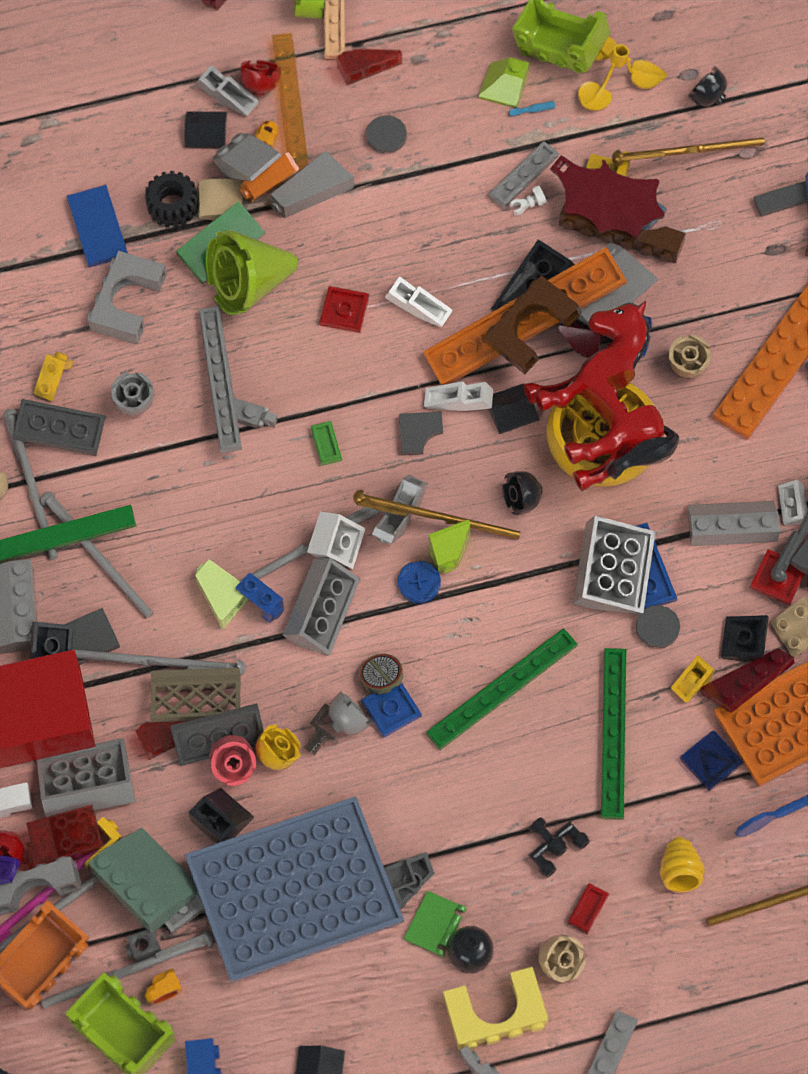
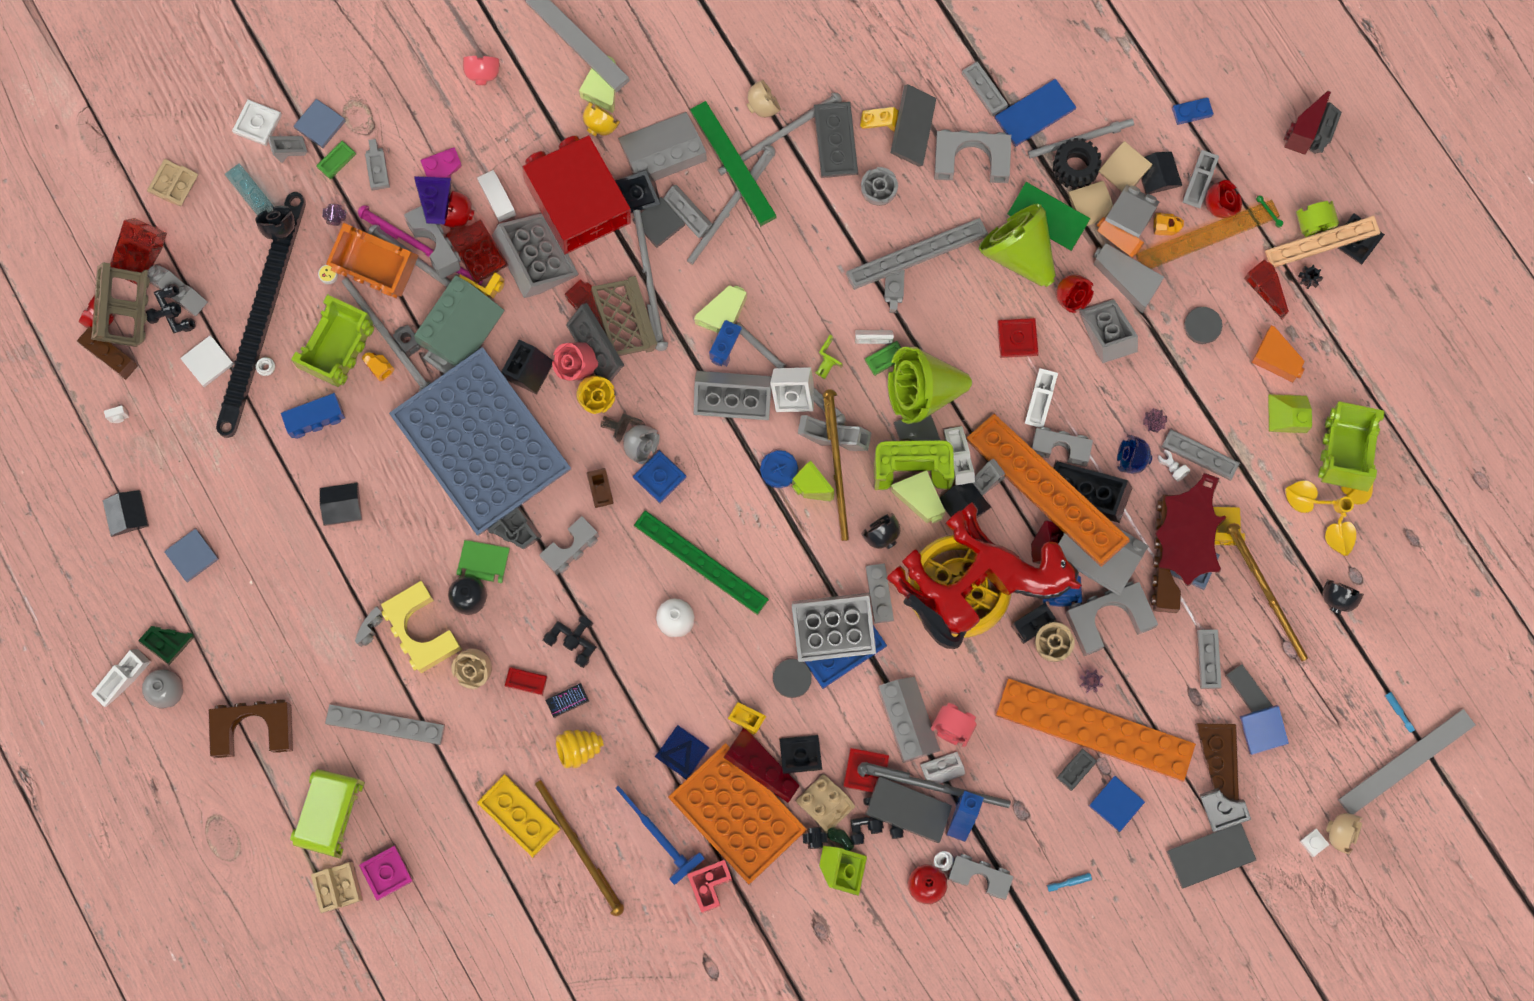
camera: 75 degrees right, 10 degrees up
(29, 1022) = (326, 275): none -> light yellow tile
(53, 266) = (984, 89): none -> light grey plate
(71, 344) = (913, 125): none -> dark grey tile
(90, 600) = (687, 211): none -> light grey plate
(142, 157) = (1114, 127): none -> light grey bar
(149, 80) = (1192, 111): none -> blue plate
(191, 155) = (1125, 167): none -> tan slope
(298, 447) = (874, 336): none -> white slope
(300, 35) = (1279, 223): none -> green hinge
(312, 498) = (828, 361): none -> lime bracket
(313, 239) = (1074, 292): none -> red cylinder
(366, 219) = (1109, 331): none -> light grey slope
(367, 23) = (1315, 276): none -> black gear
(373, 410) = (923, 384): none -> lime cone
(381, 673) = (685, 459): tile -> none
(388, 770) = (600, 487): none -> reddish brown slope
(437, 804) = (559, 559): none -> light grey arch
(441, 75) = (1279, 356): none -> orange slope
(463, 412) = (914, 456): none -> lime windscreen
(476, 203) = (1155, 420): none -> clear purple gear
(485, 283) = (1077, 447): none -> light grey arch
(492, 371) = (989, 477): none -> light grey slope
(494, 446) = (920, 496): none -> yellowish green slope
(508, 232) = (1134, 455): none -> clear blue cylinder
(533, 108) = (1272, 446): dark azure piece -> none
(540, 297) = (1020, 475): reddish brown arch -> none
(558, 729) = (675, 618): none -> white cylinder
(578, 514) = (879, 593): none -> light grey plate
(613, 734) = (685, 664): green tile -> none
(622, 868) = (567, 700): none -> black tile
(660, 374) = (1030, 624): none -> black hinge
(667, 324) = (1131, 600): none -> light grey arch
(737, 336) = (1086, 681): none -> gear
(740, 952) = (518, 816): none -> yellow tile
(741, 224) = (1209, 659): none -> light grey plate
(752, 475) = (954, 725): none -> coral brick

